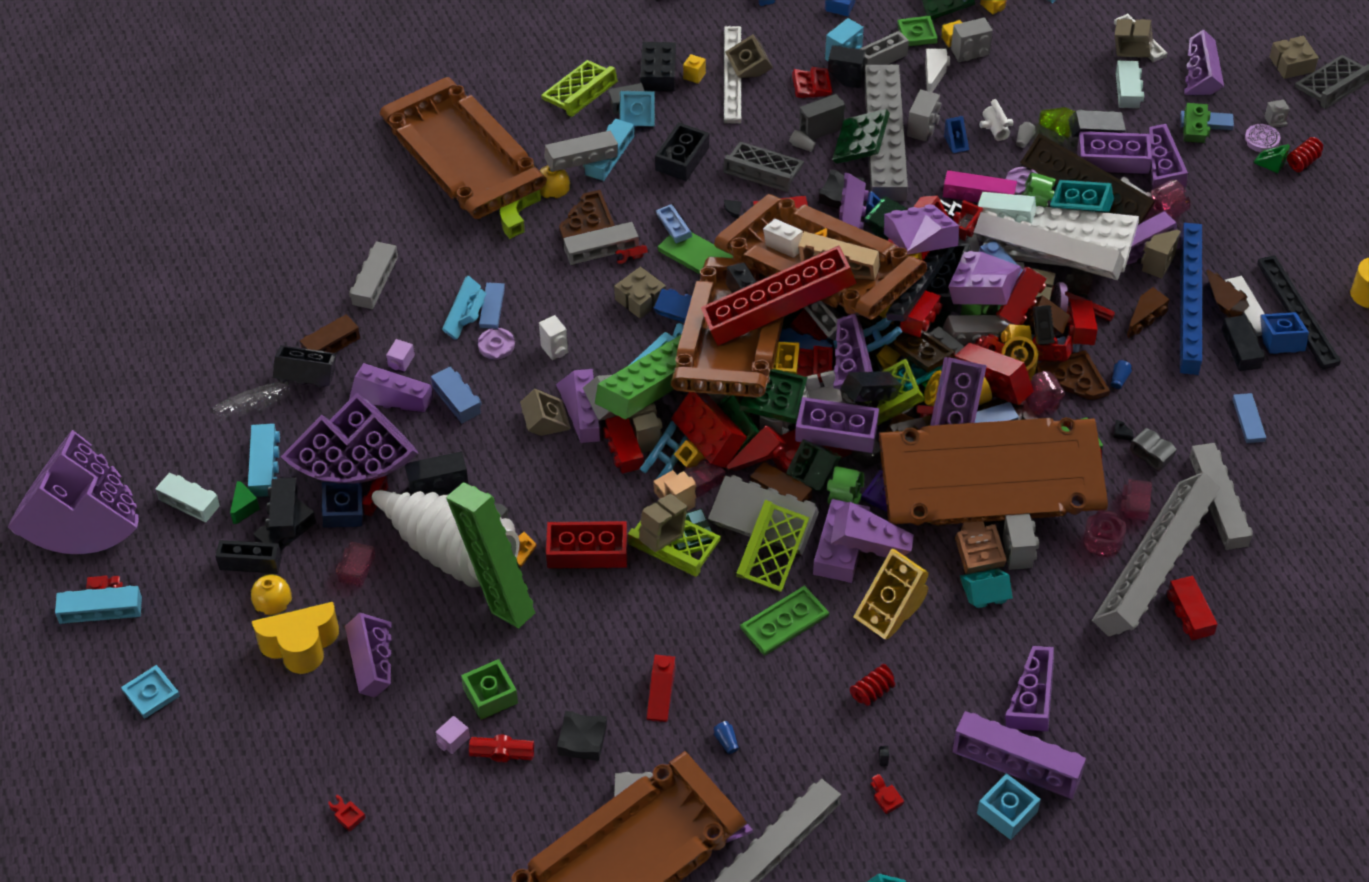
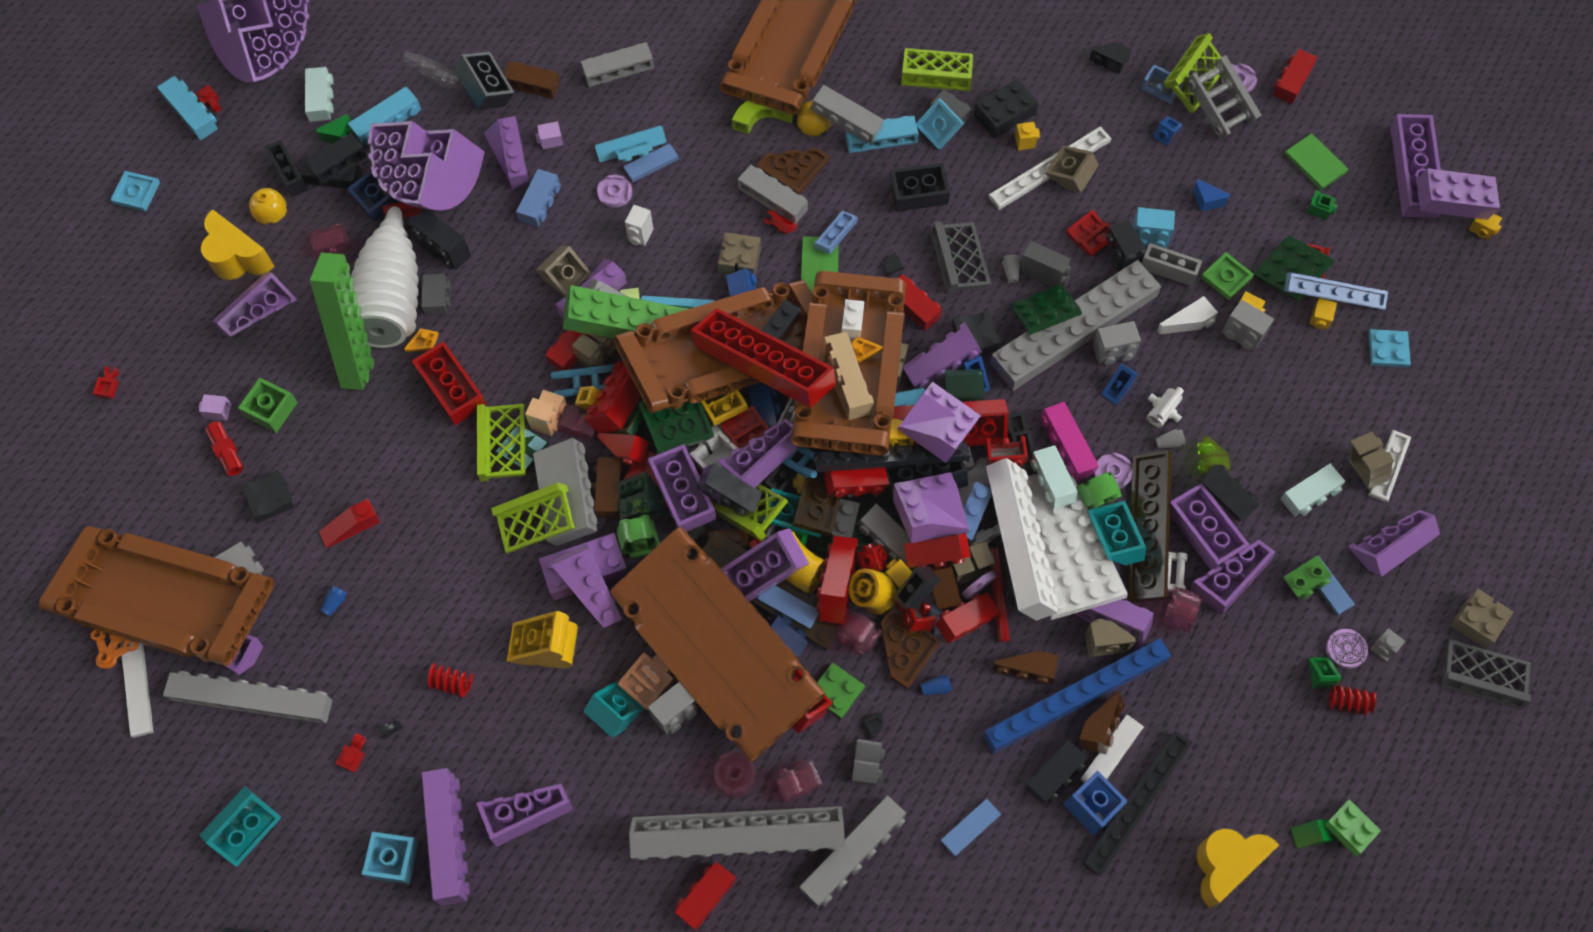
camera: 55 degrees right, 15 degrees up
(662, 522) = (491, 422): dark tan piece -> none
(784, 620) = (479, 573): bright green tile -> none

